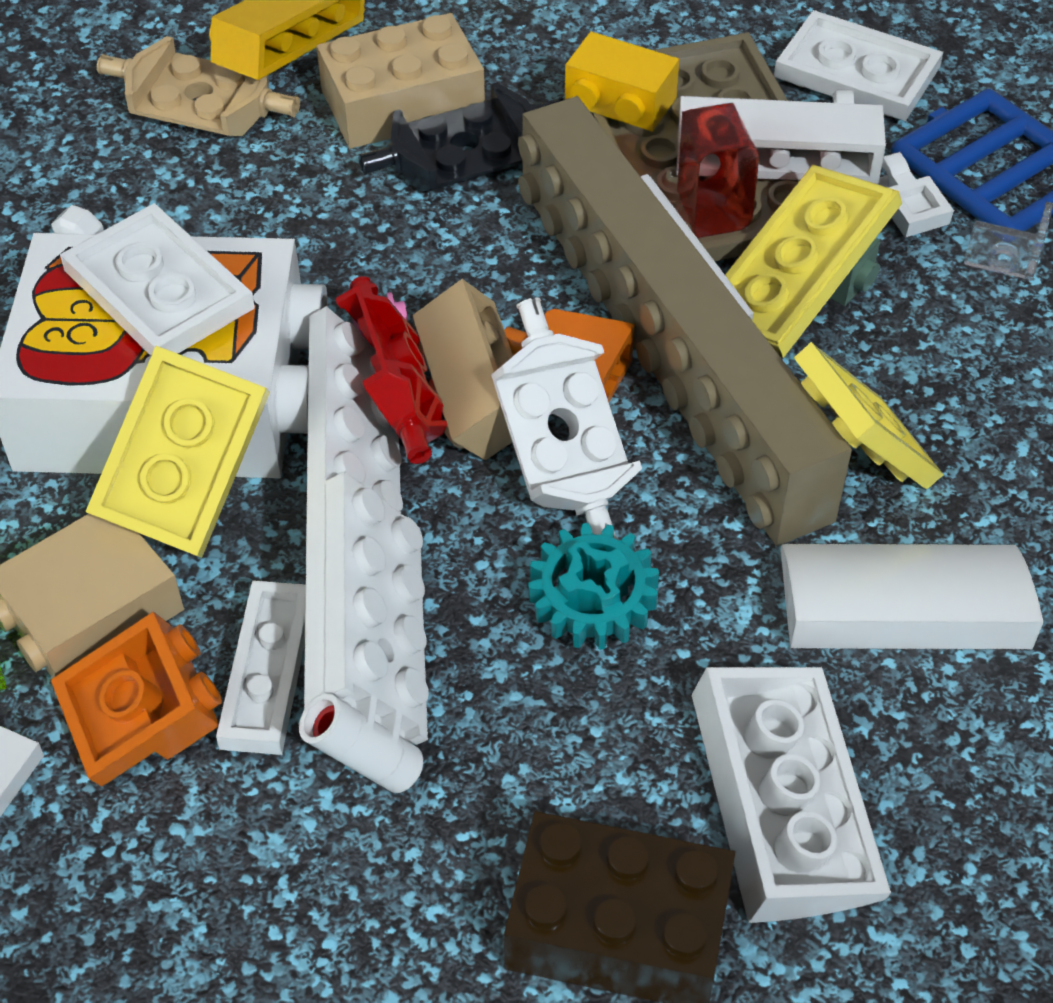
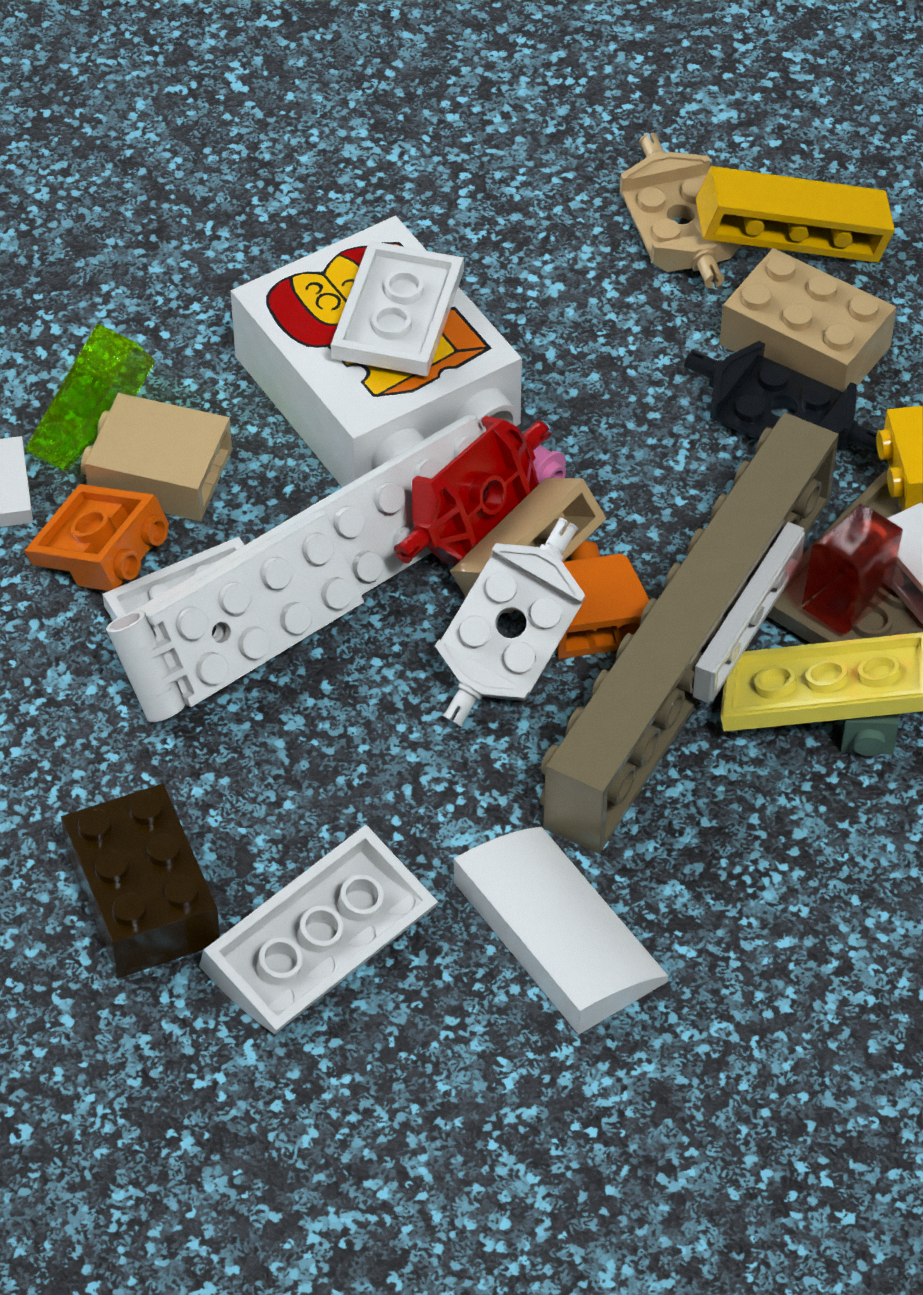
camera: 55 degrees right, 0 degrees up
(76, 221) = (466, 242): white tile -> none
(178, 451) = (275, 418): light yellow plate -> none
(594, 604) = (395, 728): teal gear -> none
(865, 418) = (674, 801): light yellow plate -> none

